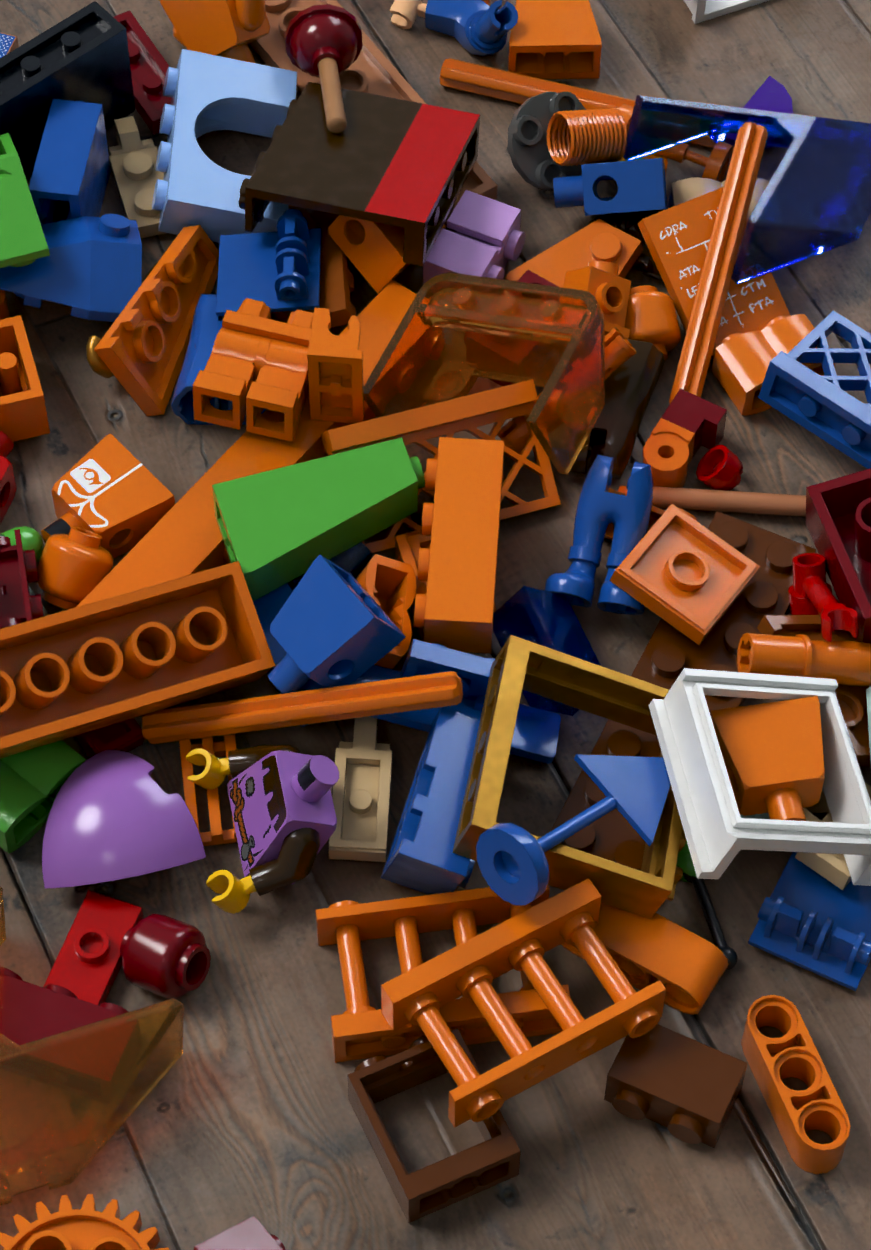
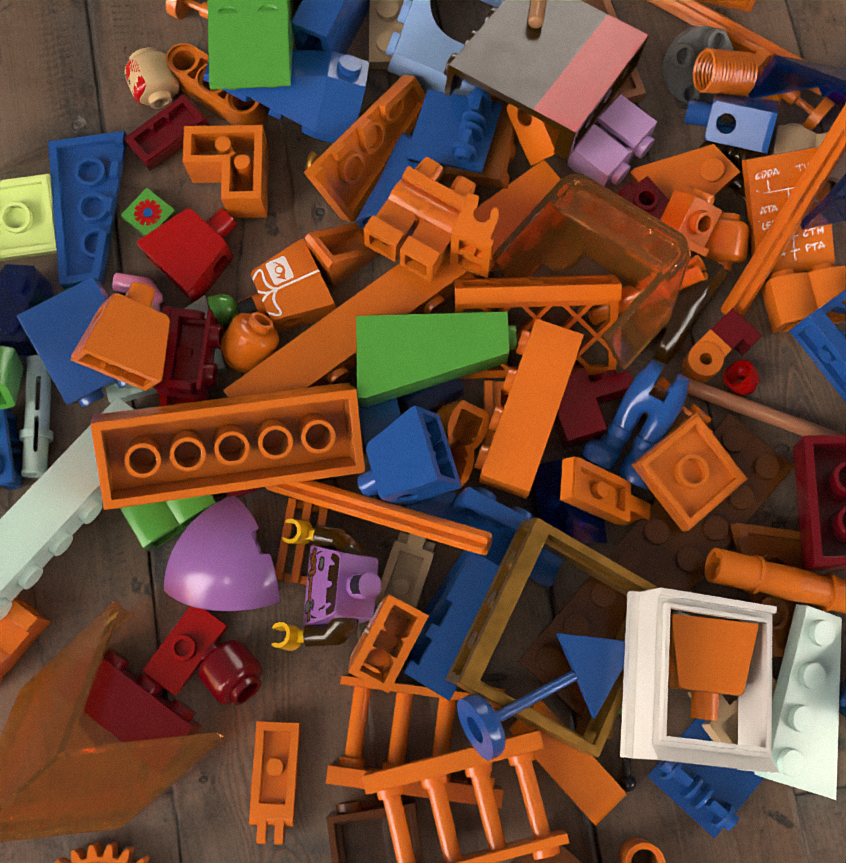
camera: 20 degrees right, 20 degrees up
(162, 443) = (339, 251): none -> orange slope
(262, 1066) = (274, 778): none -> orange hinge
(361, 847) = (386, 642): none -> orange torso
(531, 538) = (579, 410): none -> dark red brick
(584, 618) = (600, 493): none -> orange hinge
(814, 596) = (779, 508): red brick -> none

